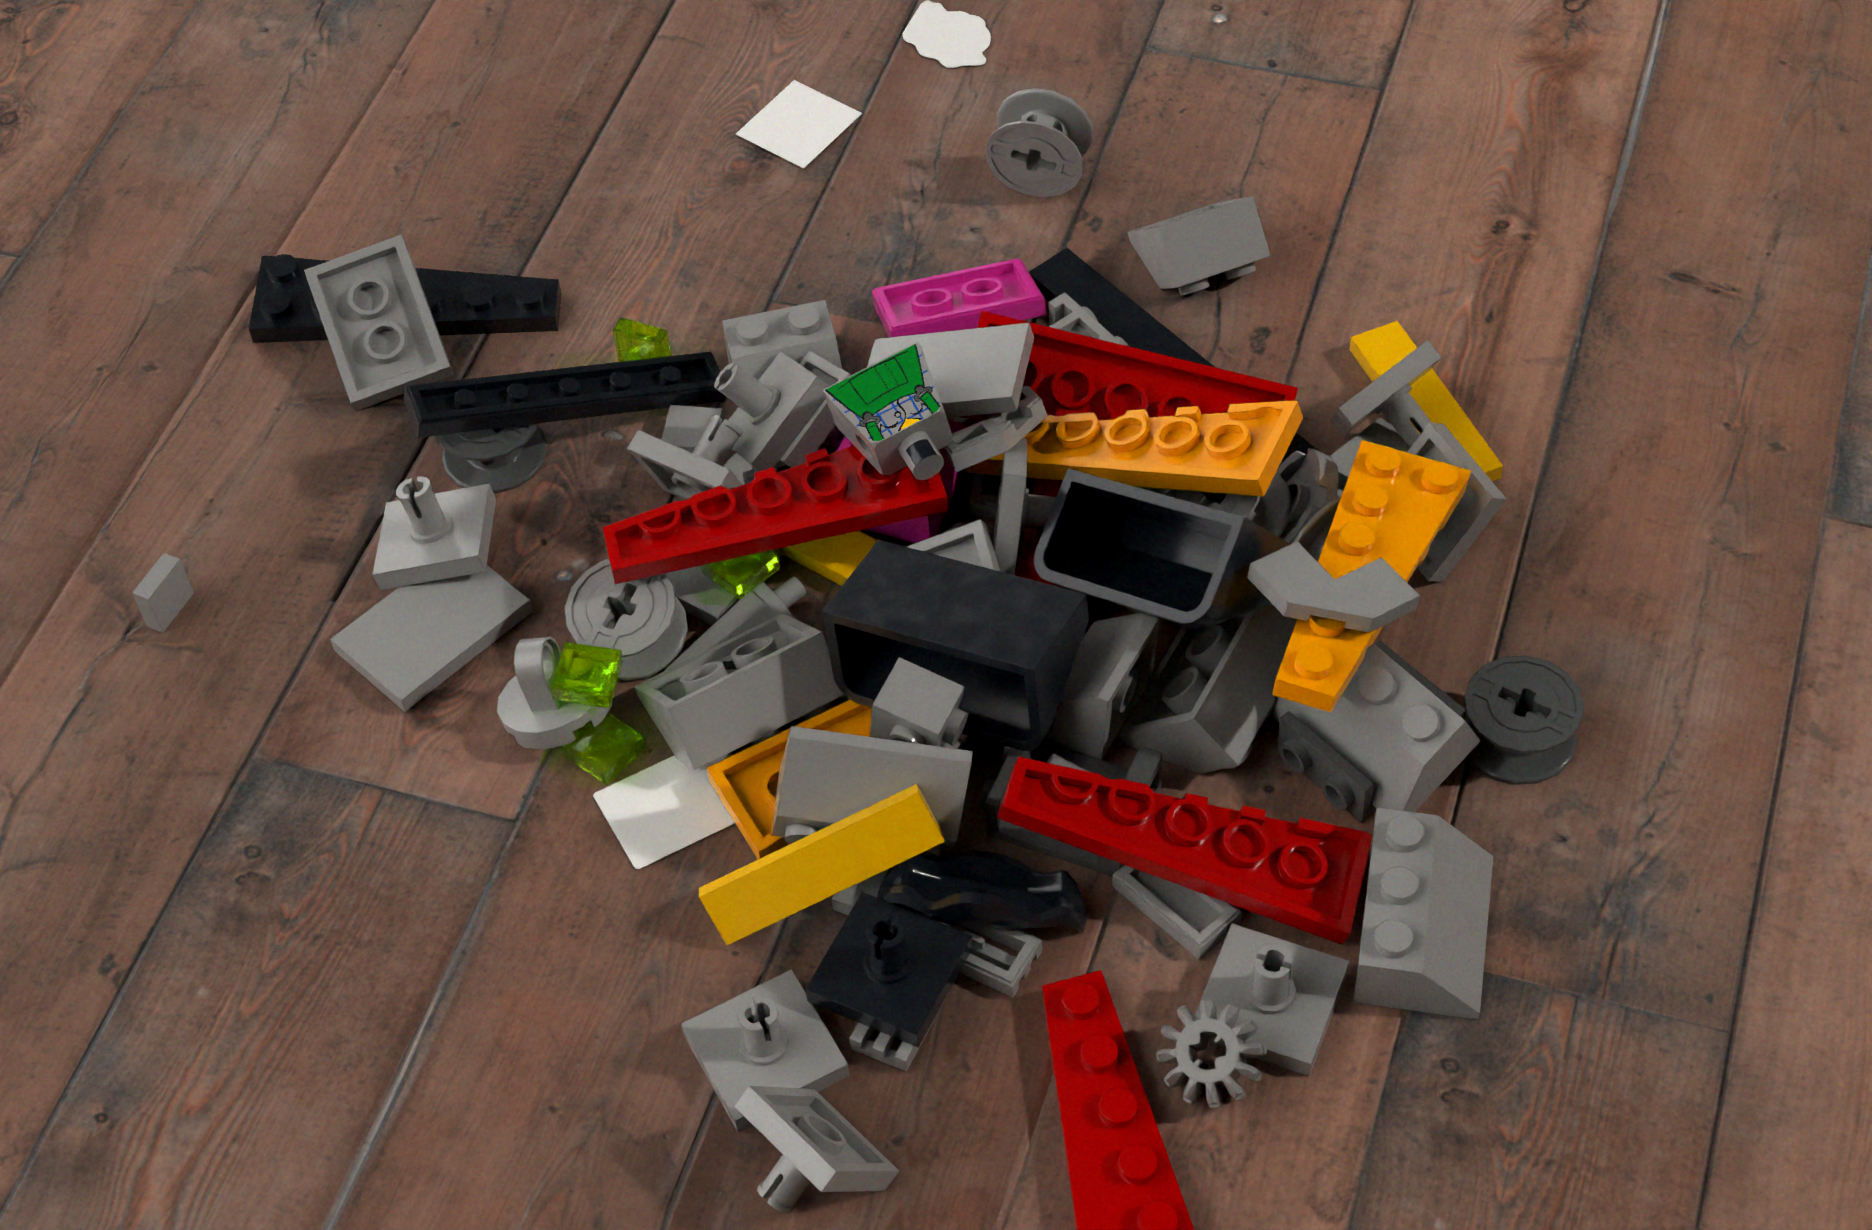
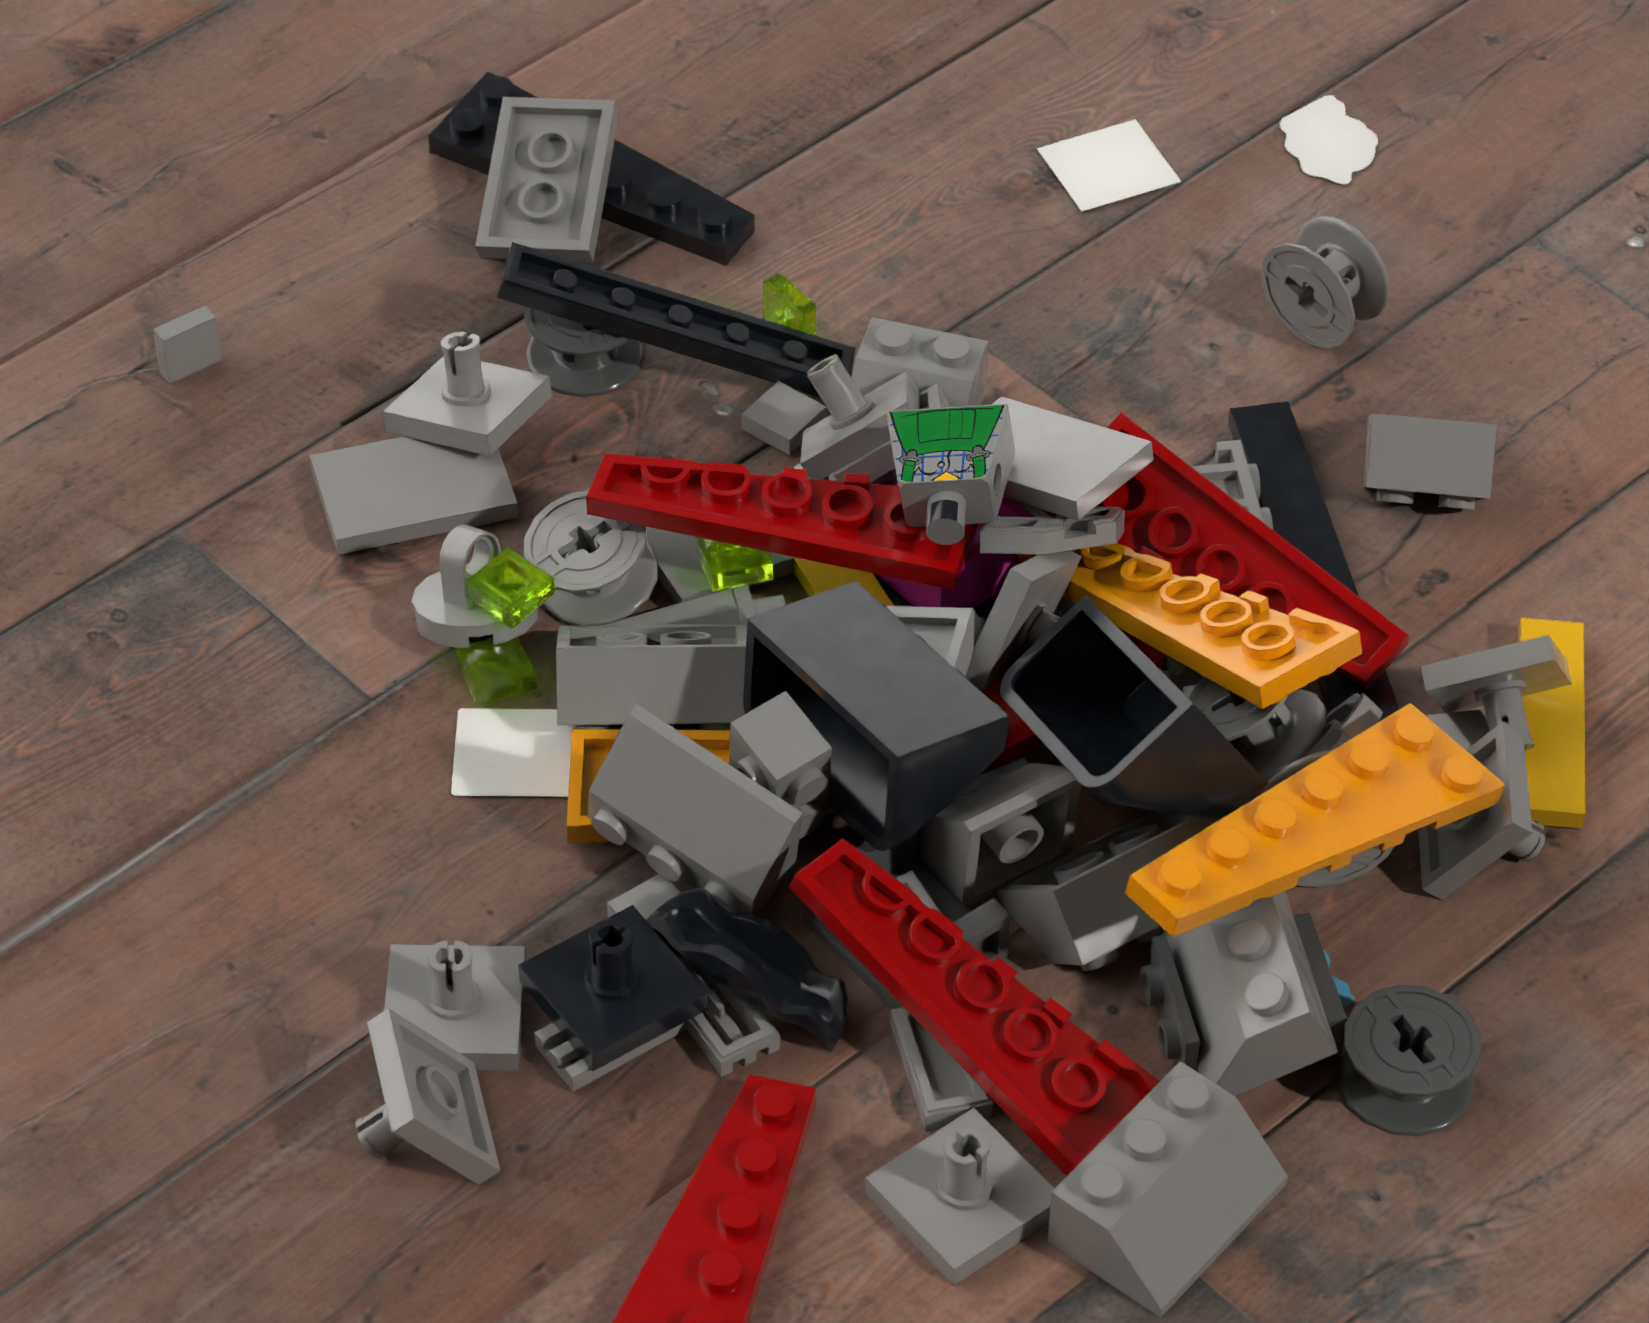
camera: 25 degrees right, 5 degrees down
(688, 472) = (735, 443): light grey tile -> none
(821, 864) = (609, 860): yellow tile -> none
(956, 299) = (1168, 409): dark pink tile -> none
(1195, 1038) = (854, 1232): light grey gear -> none
(1304, 588) = (1268, 841): light grey tile -> none

